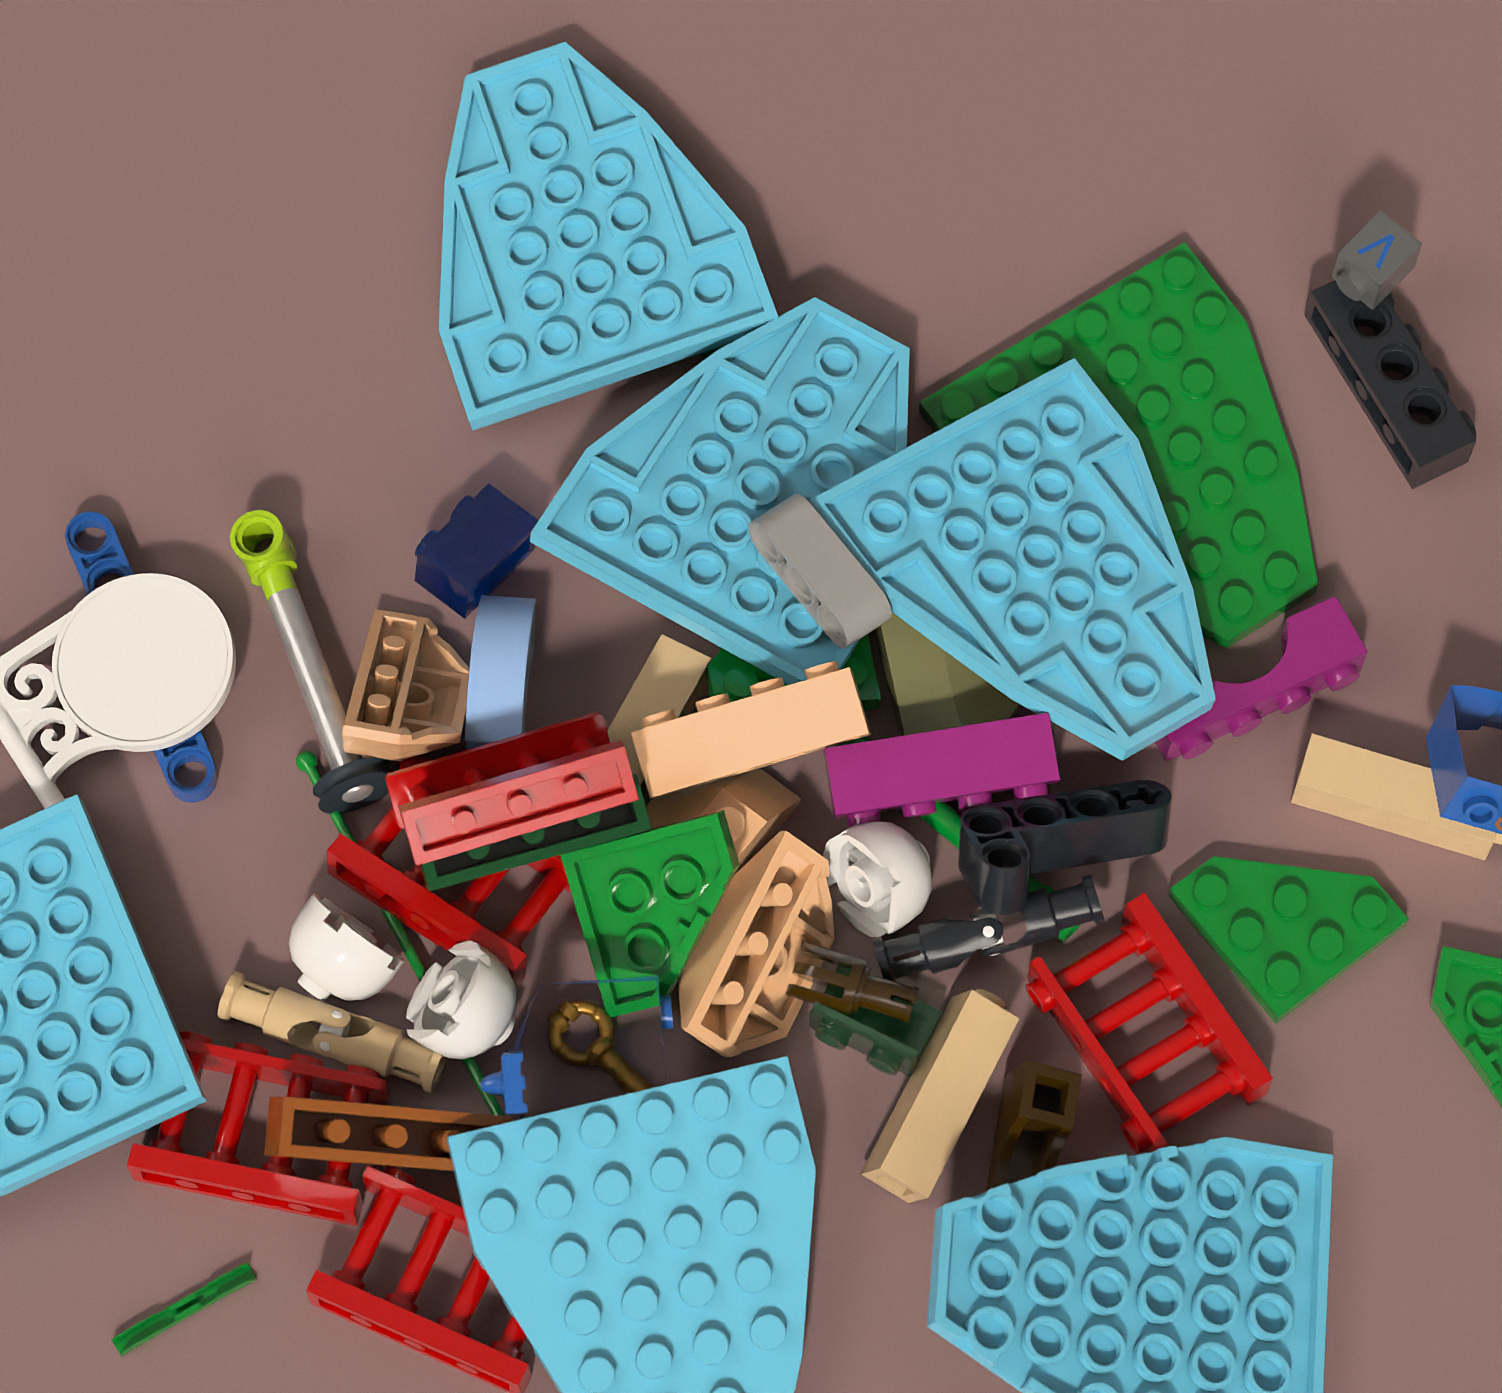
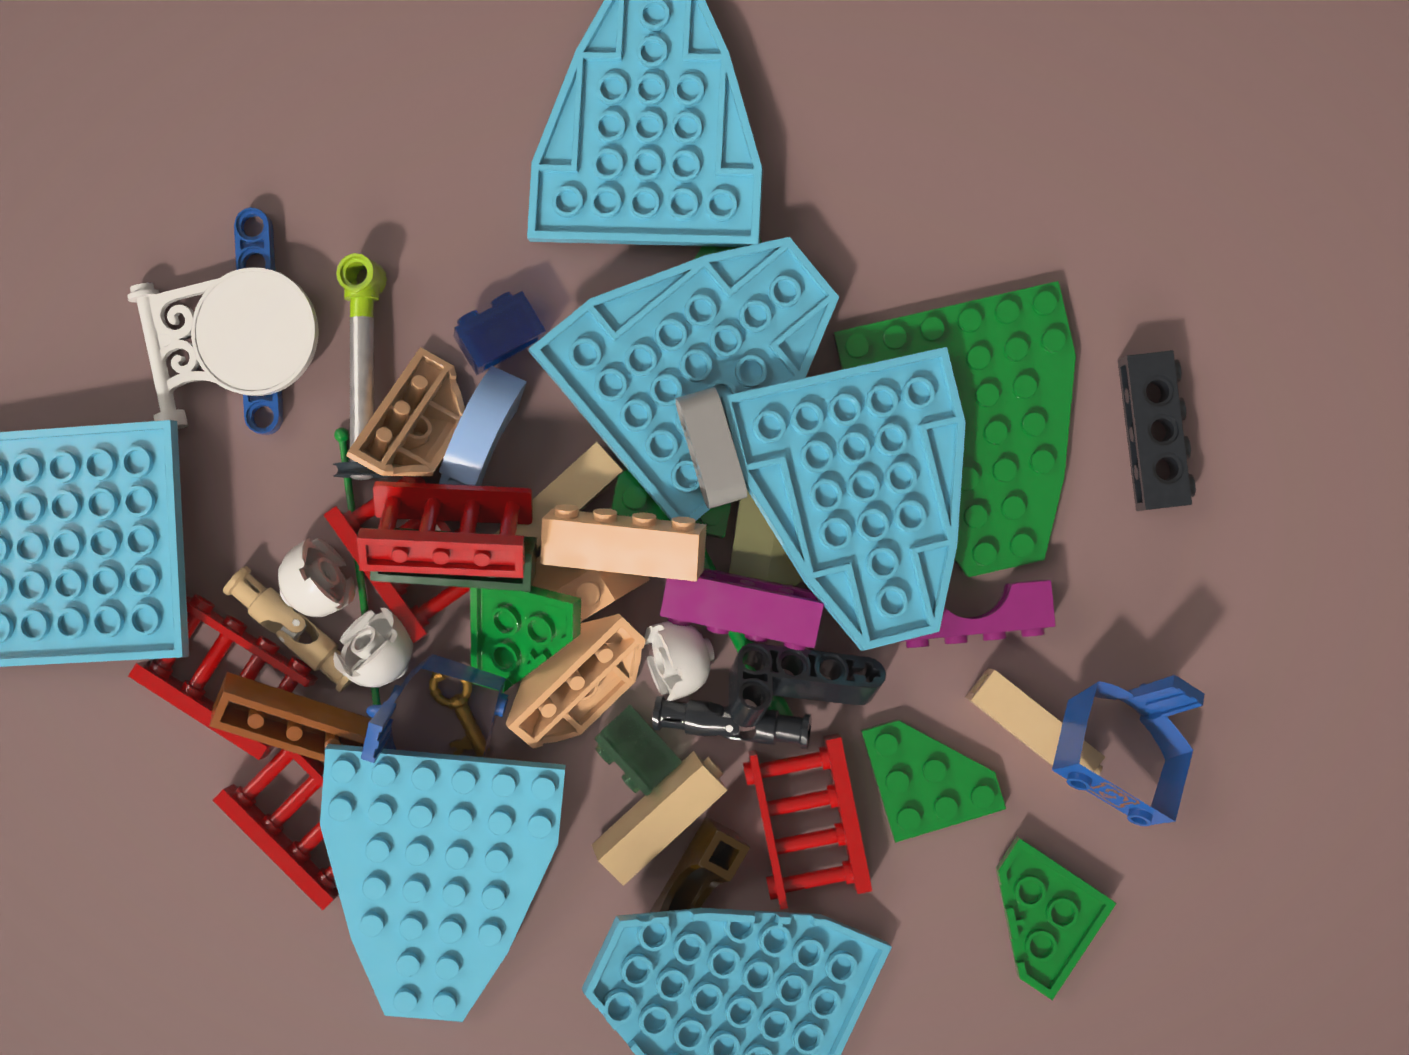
camera: 20 degrees right, 20 degrees up
(183, 1309) = (144, 769): green piece -> none
(859, 988) = (625, 729): dark brown arm -> none
(1375, 260) = (1179, 355): dark grey brick -> none

